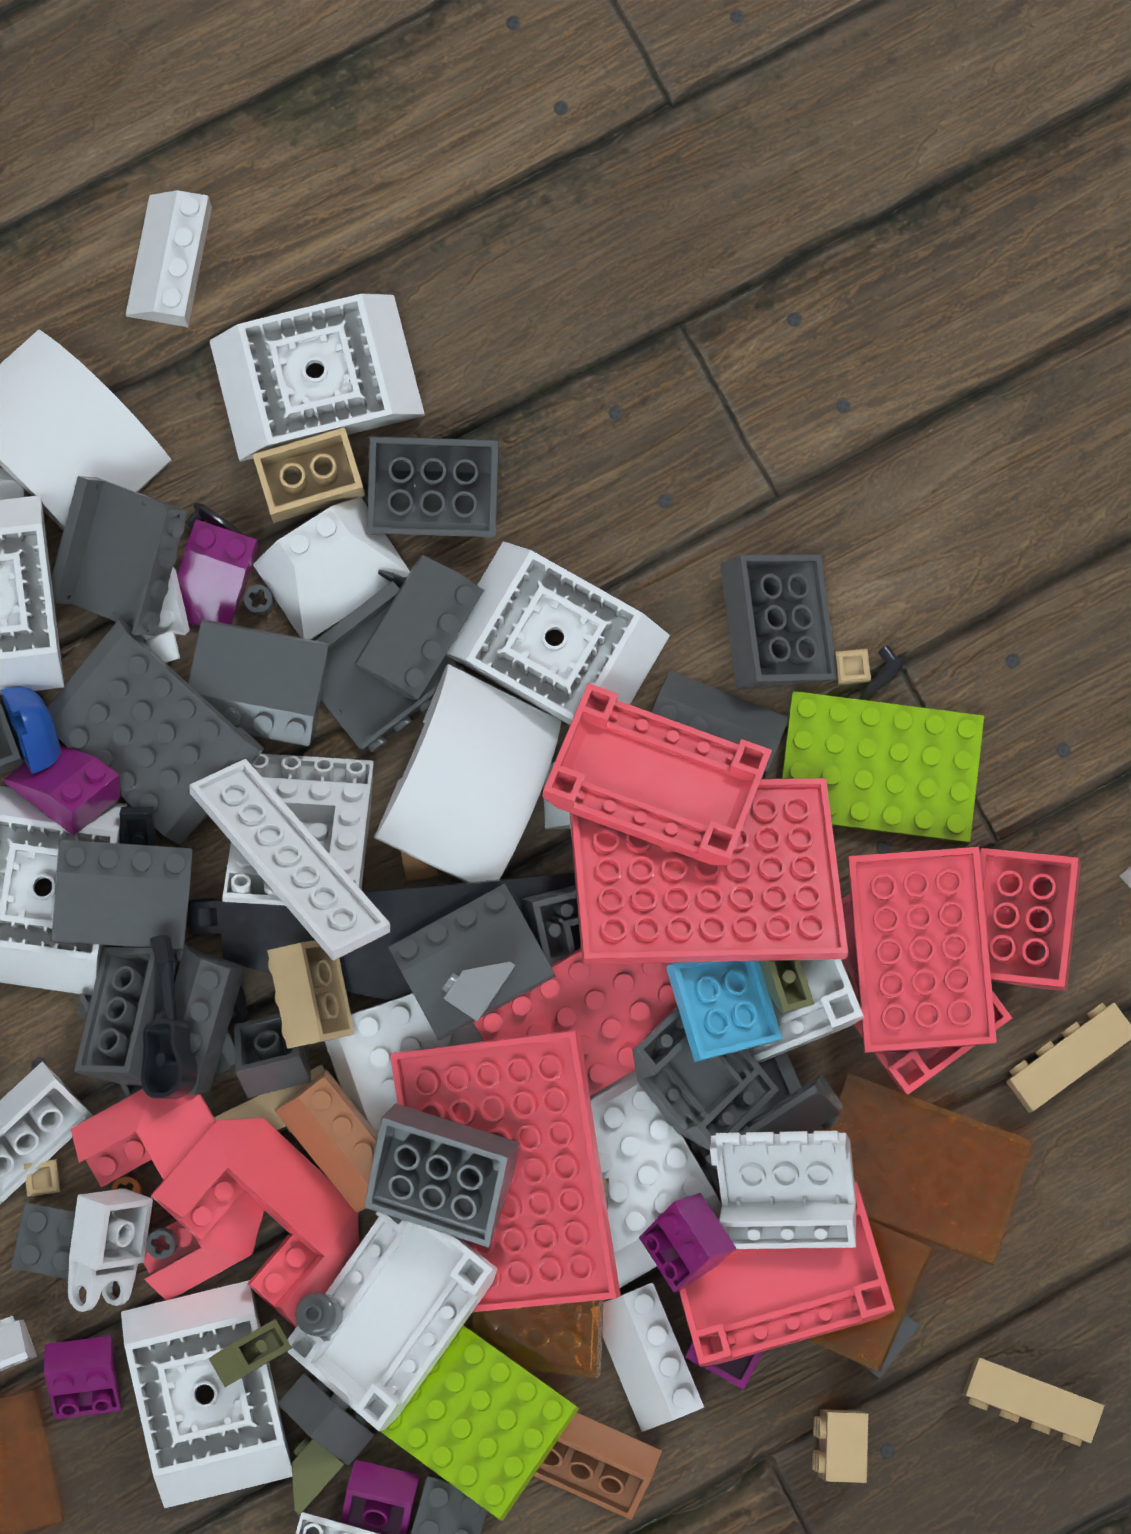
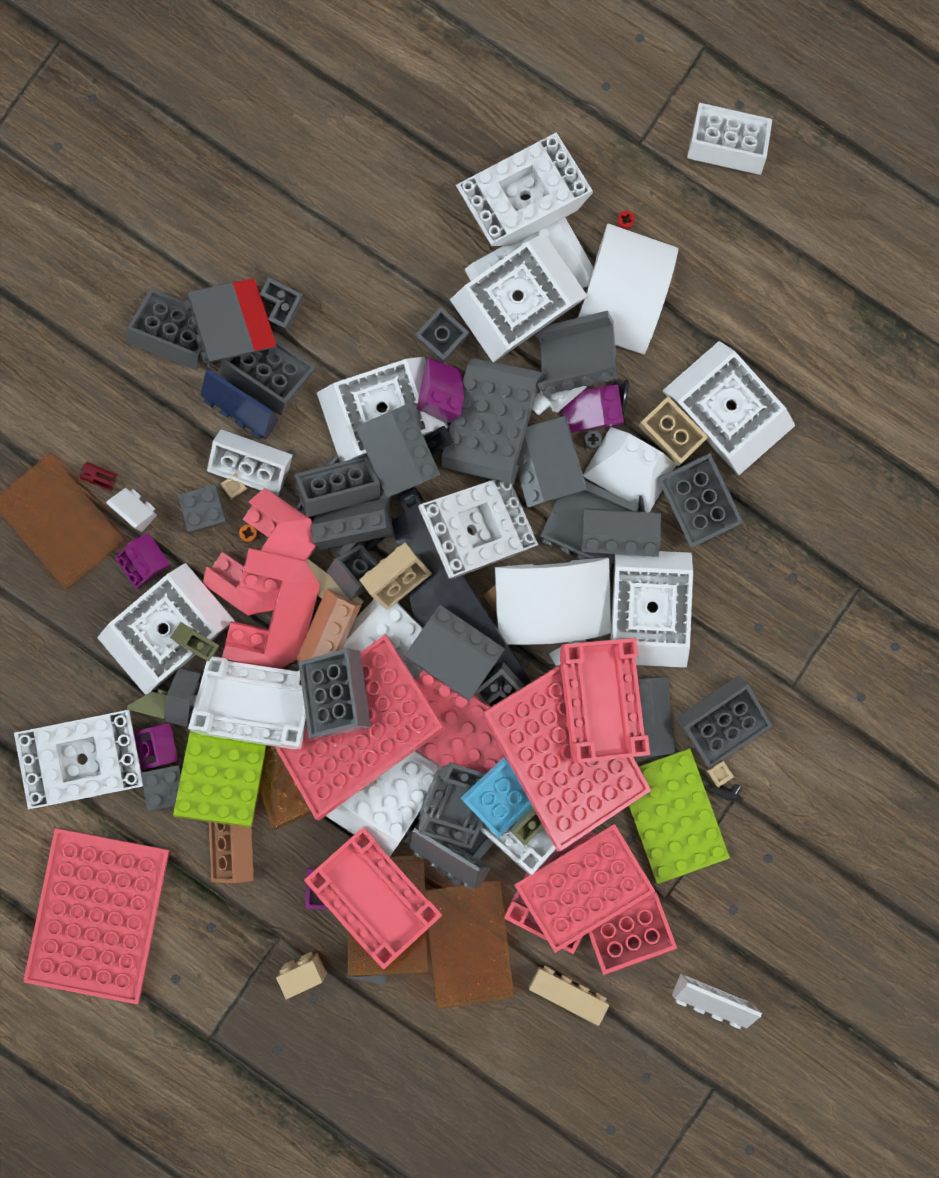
camera: 65 degrees right, 5 degrees up
(33, 727) = (463, 357): blue brick -> none
(107, 1245) = (214, 538): white brick -> none
(152, 1248) = (224, 562): dark grey bush -> none
(168, 1061) = (323, 520): black piece -> none
(169, 257) = (753, 296): white slope -> none
(290, 859) = (458, 529): white plate -> none
(319, 1314) = (232, 666): dark grey head -> none
(476, 988) = (439, 663): light grey slope -> none
(648, 1358) = (297, 850): white slope -> none
(687, 1241) = (365, 841): magenta slope -> none
(786, 1189) = (416, 880): white slope -> none
(1032, 1400) = (377, 1063): tan brick -> none

